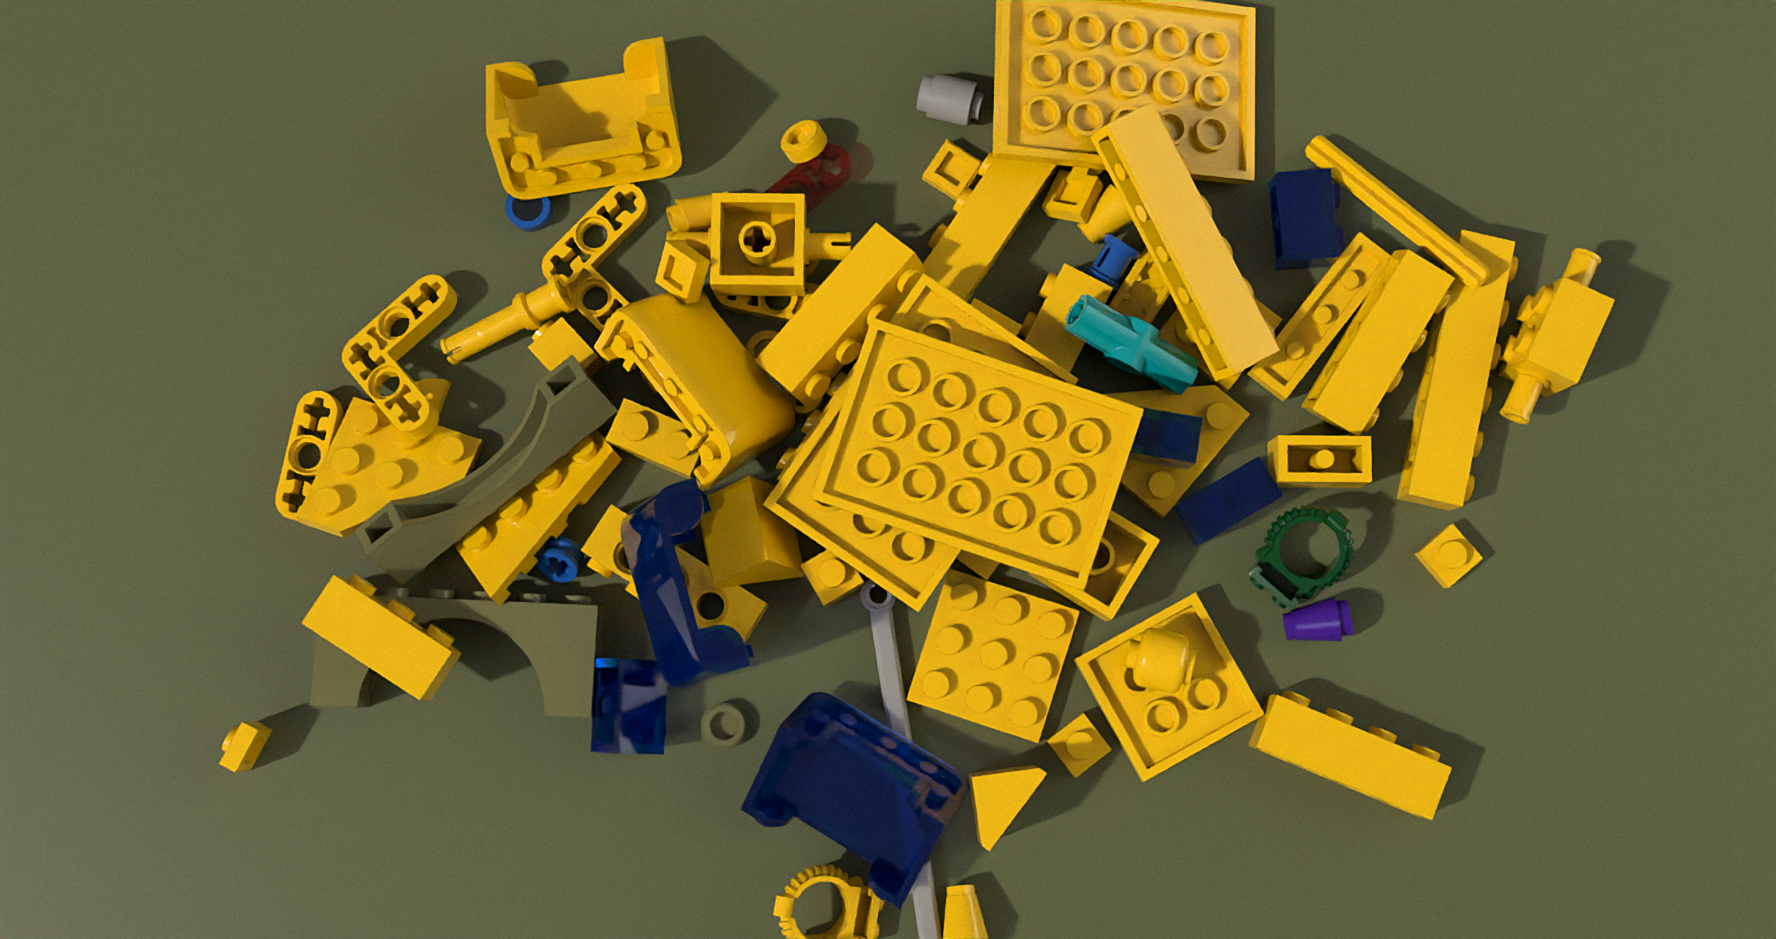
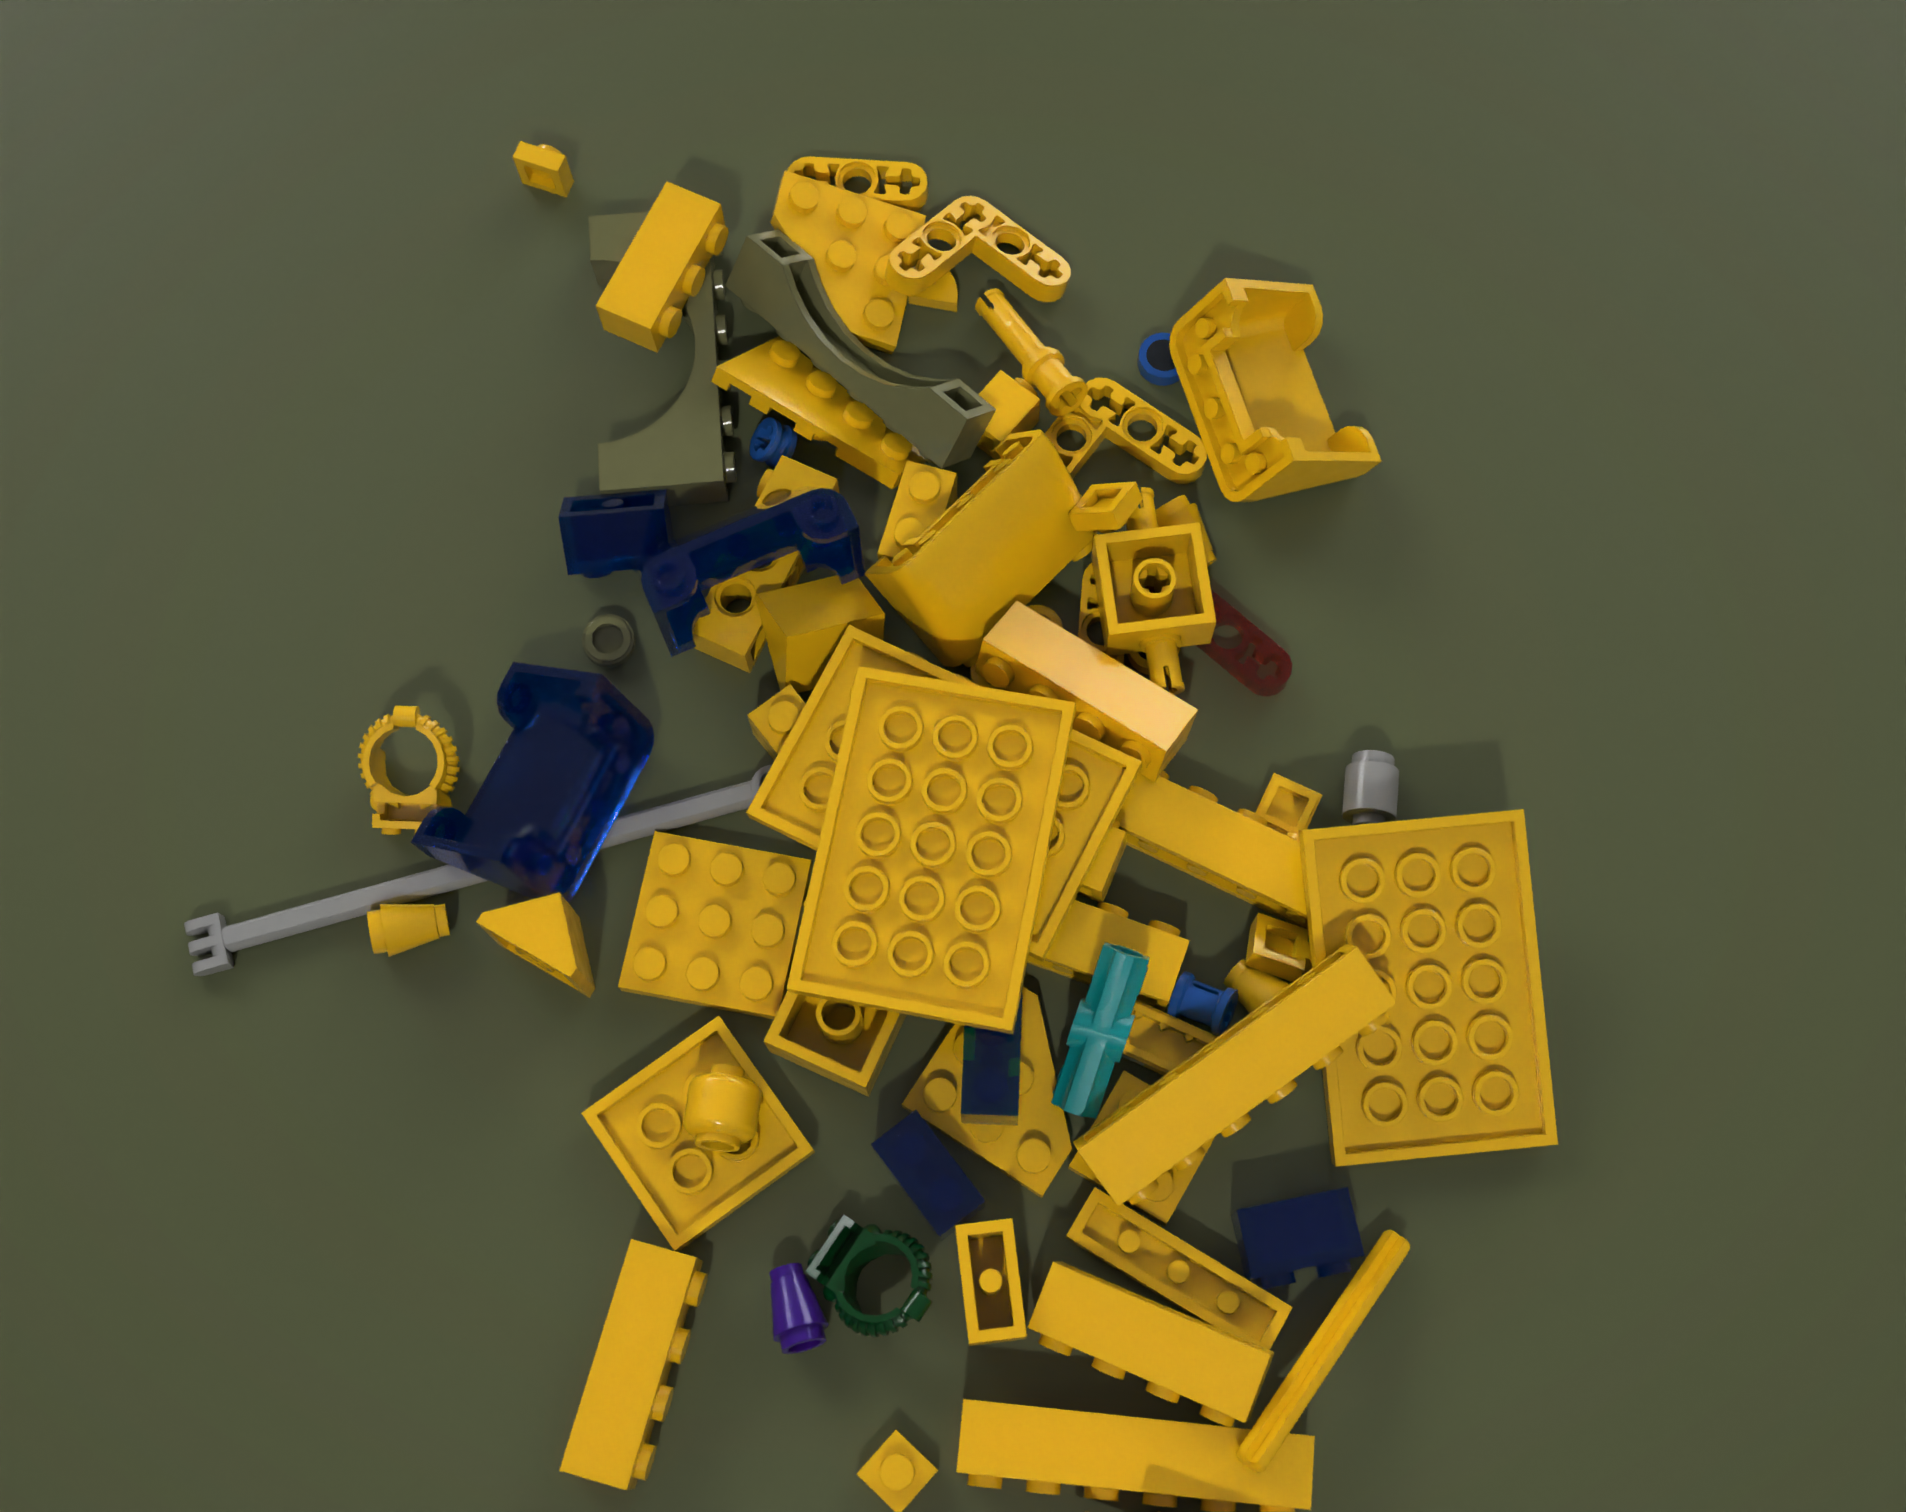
camera: 85 degrees right, 10 degrees down
(803, 141) = (1289, 633): yellow tile -> none
(1078, 745) = (620, 1036): yellow plate -> none

